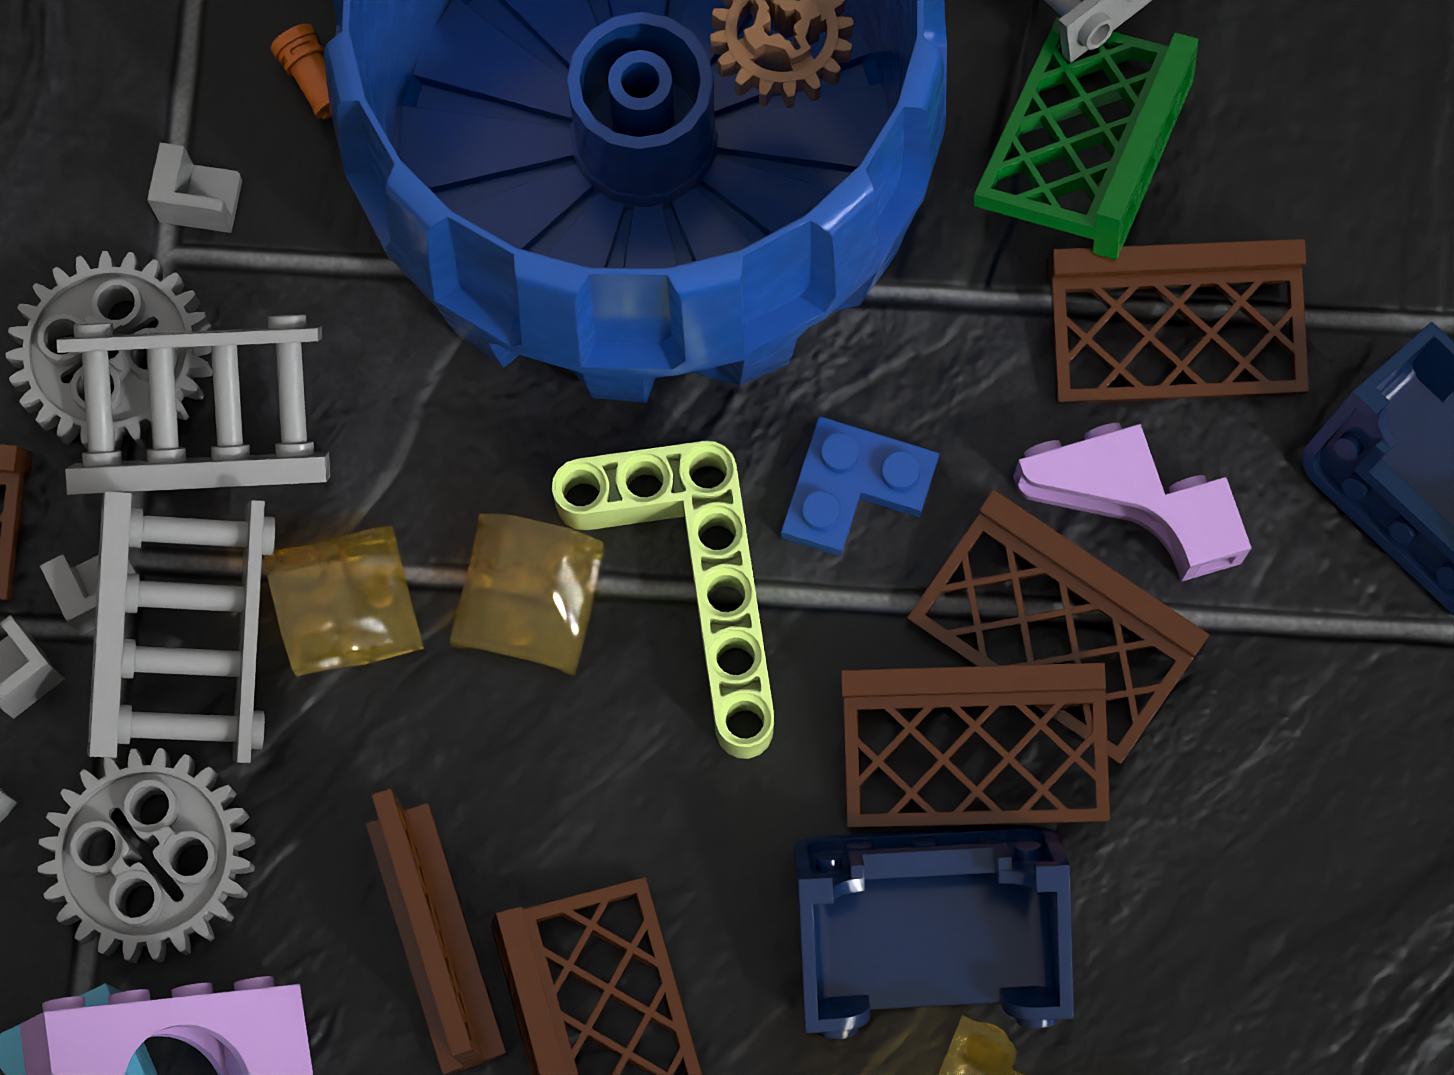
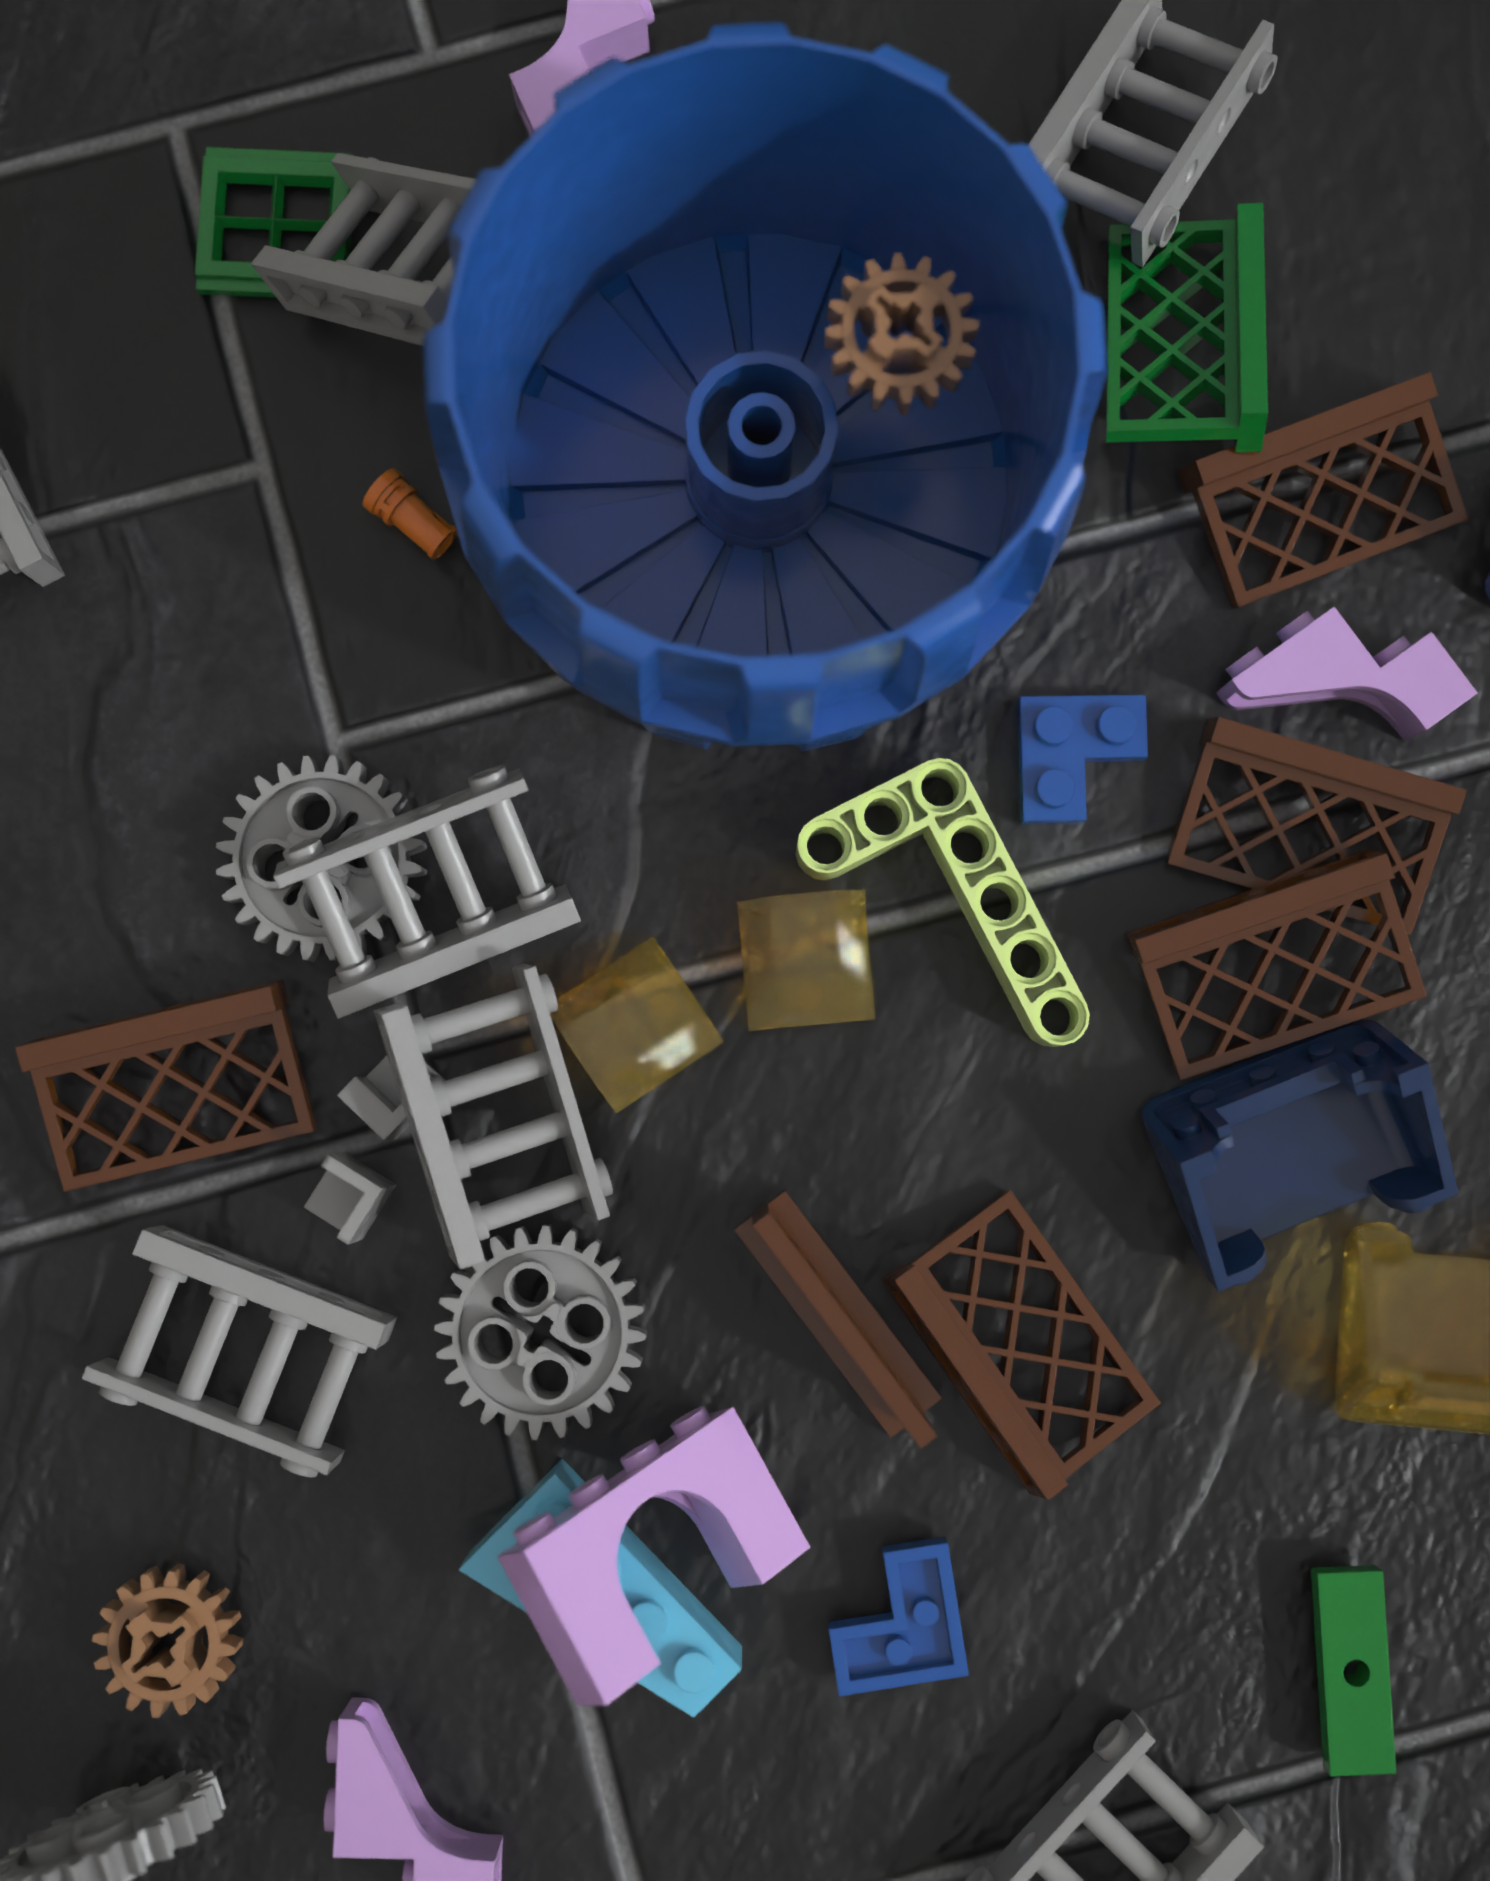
camera: 20 degrees left, 10 degrees up
(192, 193) = (341, 673): light grey panel -> none

